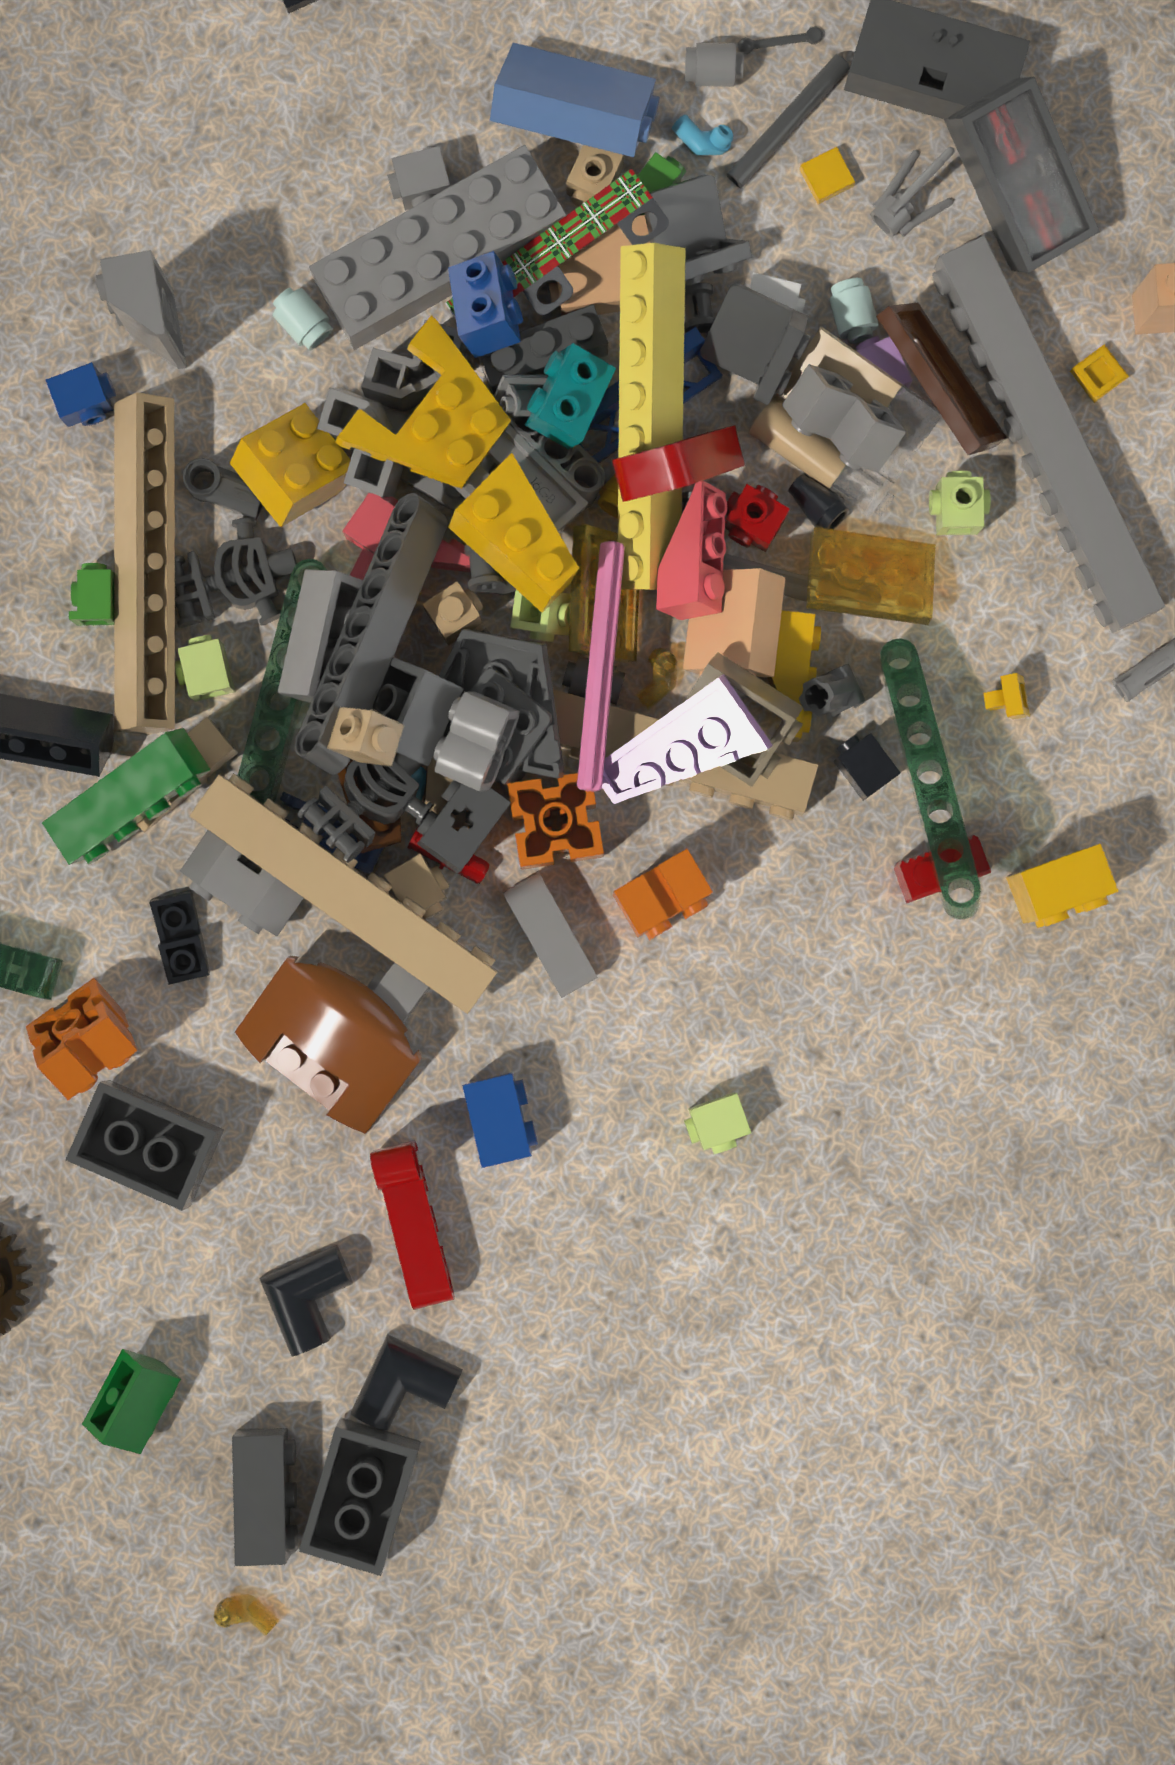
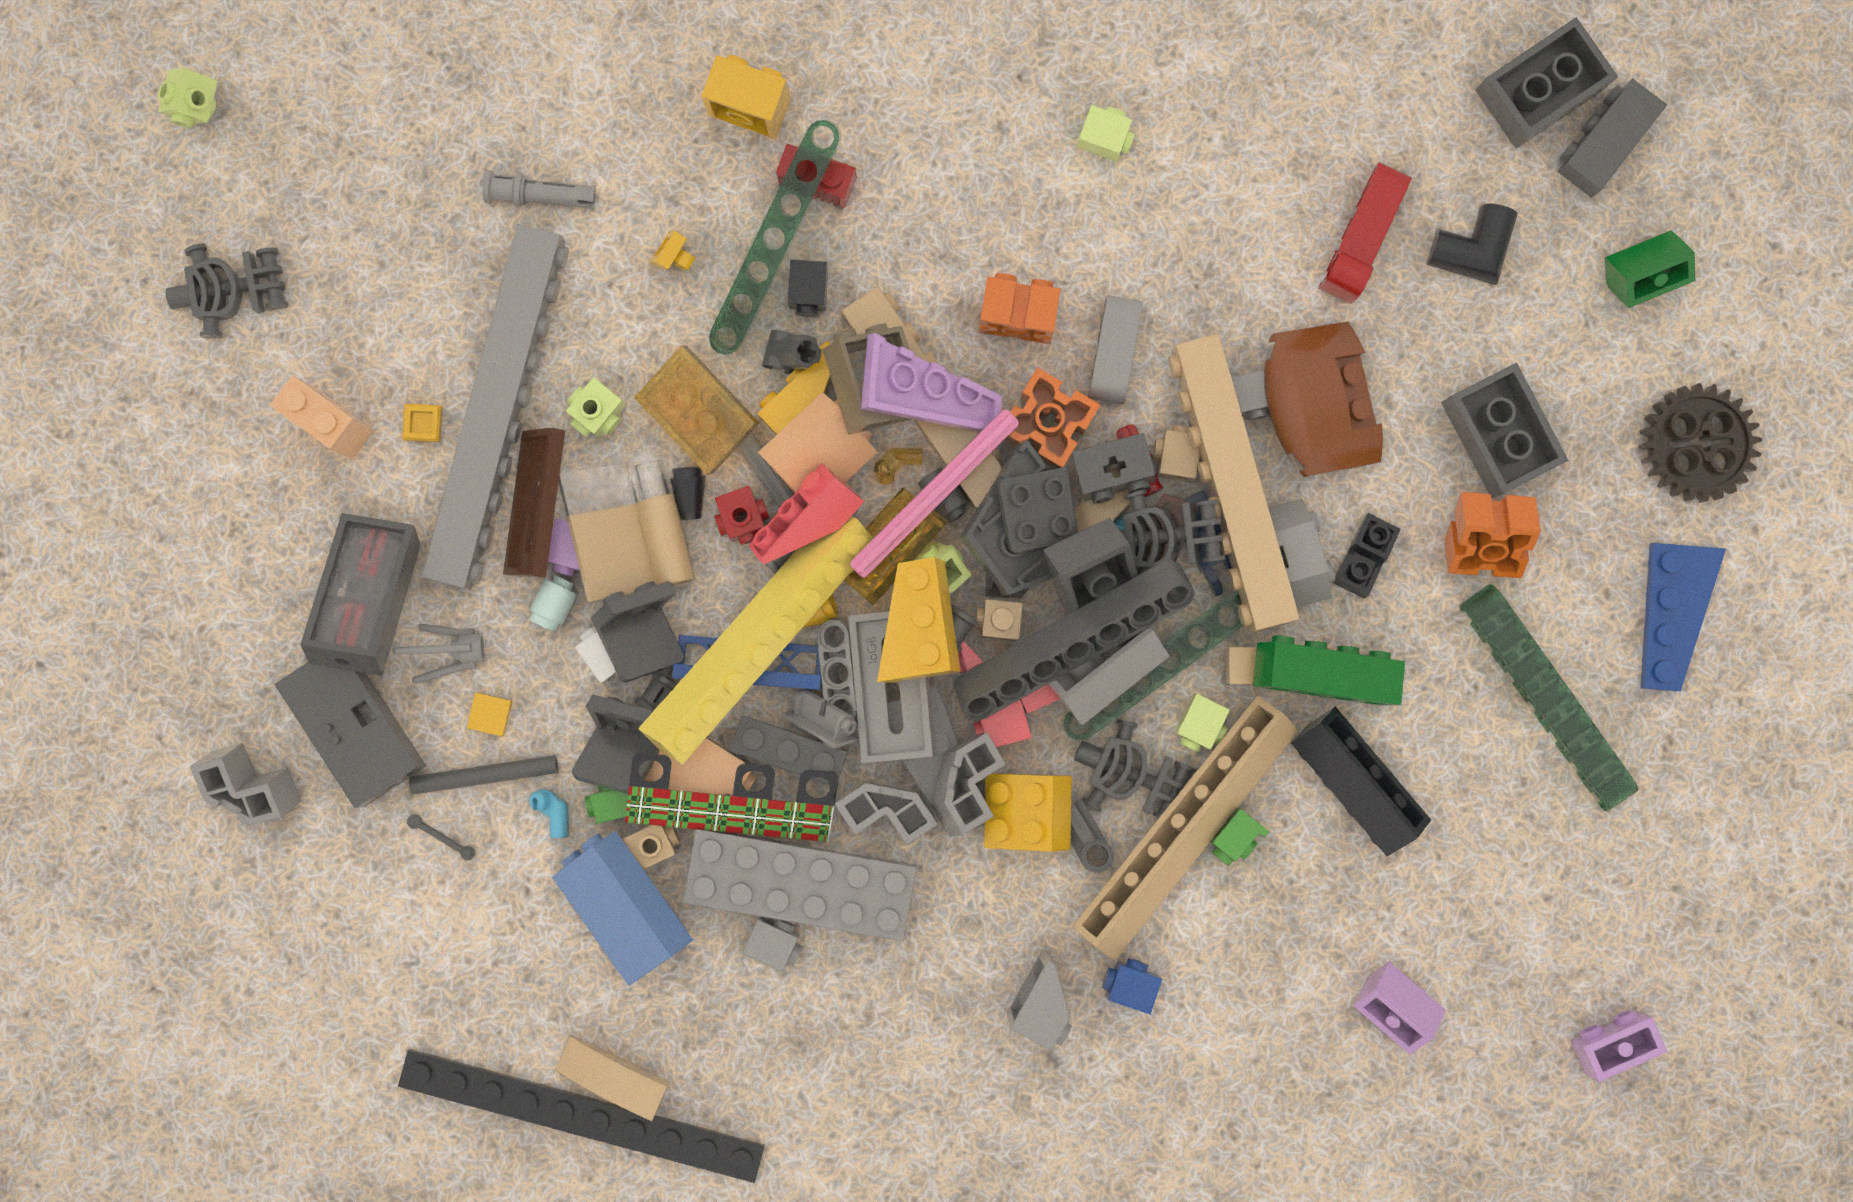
camera: 140 degrees left, 0 degrees up
(244, 1609) = (1681, 76): clear yellow arm -> none
(301, 318) = (935, 915): light aqua brick -> none
(365, 736) = (1139, 564): tan brick -> none
(401, 1370) = (1455, 147): black brick -> none
(448, 428) = (901, 741): yellow wing -> none
(475, 740) = (1063, 506): light grey brick -> none
(485, 304) = (805, 809): blue brick -> none
(499, 1119) = (1252, 253): blue brick -> none
(569, 395) = (801, 696): teal brick -> none
(678, 463) = (764, 580): red beam -> none
(713, 64) = (502, 856): light grey brick -> none
(859, 430) = (622, 510): light grey brick -> none

